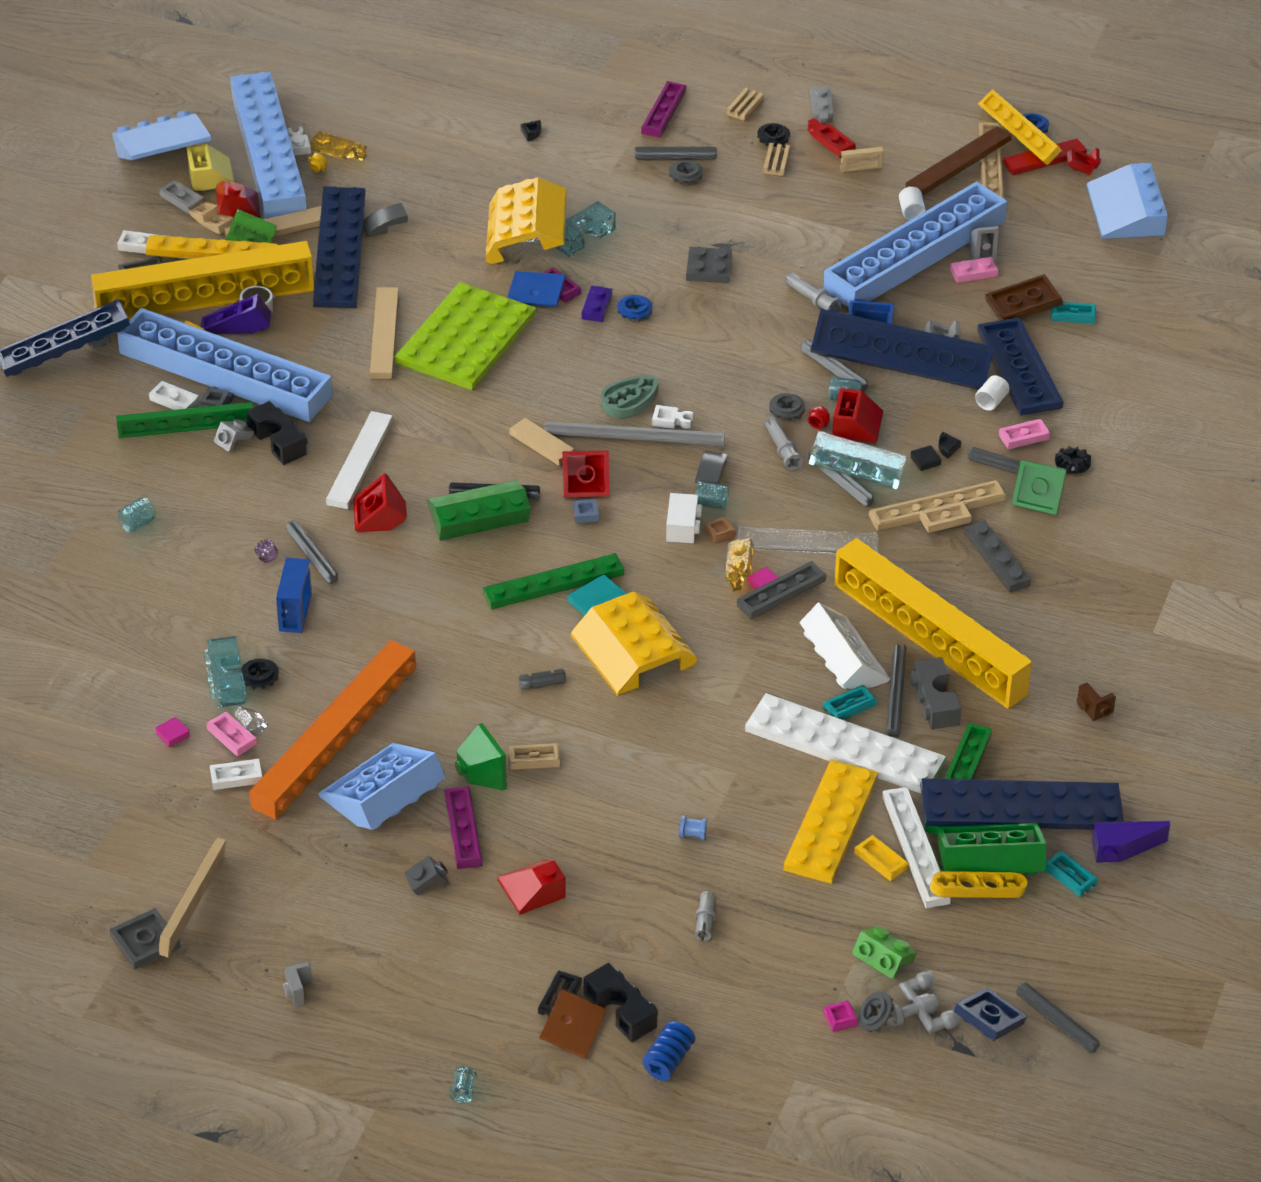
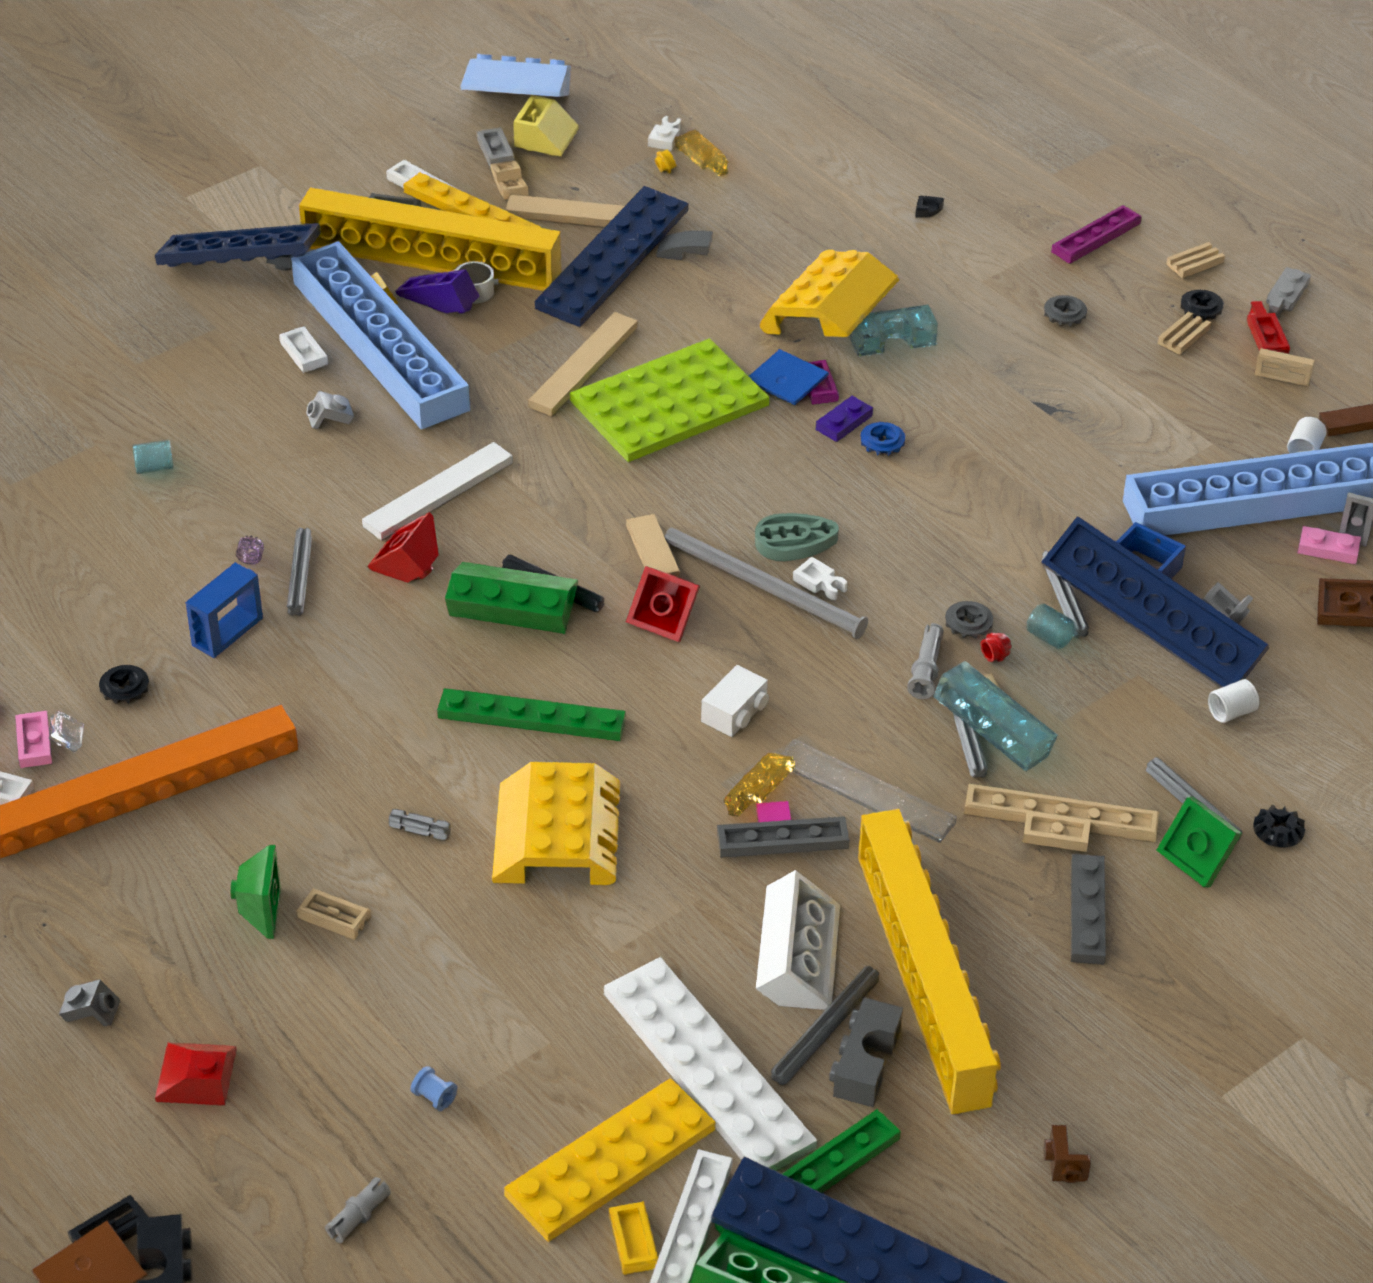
camera: 30 degrees right, 0 degrees up
(180, 420) = (290, 375): green plate -> none
(215, 397) = (345, 366): dark grey slope -> none
(227, 683) = (76, 680): clear light blue arch -> none
(236, 197) = (545, 171): red slope -> none
(250, 229) = (527, 203): bright green bracket -> none
(267, 144) = (624, 124): light blue brick -> none
(286, 439) = (374, 426): black arch -> none
(384, 785) = (135, 873): light blue slope -> none
(463, 827) = (182, 964): magenta tile -> none
(586, 511) = (632, 647): sand blue plate -> none
(594, 593) = (564, 747): teal tile -> none
(675, 152) = (1071, 285): dark grey axle -> none
(709, 264) = (1009, 422): dark grey plate -> none
(711, 467) = (816, 656): dark grey slope -> none
(712, 495) = (790, 688): clear light blue piece -> none
(719, 529) = (772, 733): medium nougat tile -> none
(819, 298) = (1108, 507): light grey pin -> none
(852, 705) = (755, 1021): teal tile -> none
(856, 416) = (1037, 663): red slope -> none
(925, 458) = (1091, 748): black tile -> none
(948, 444) = (1133, 743): black tile -> none
(1020, 366) = (1296, 683): dark blue plate -> none
(1024, 434) = (1238, 768): bright pink plate -> none

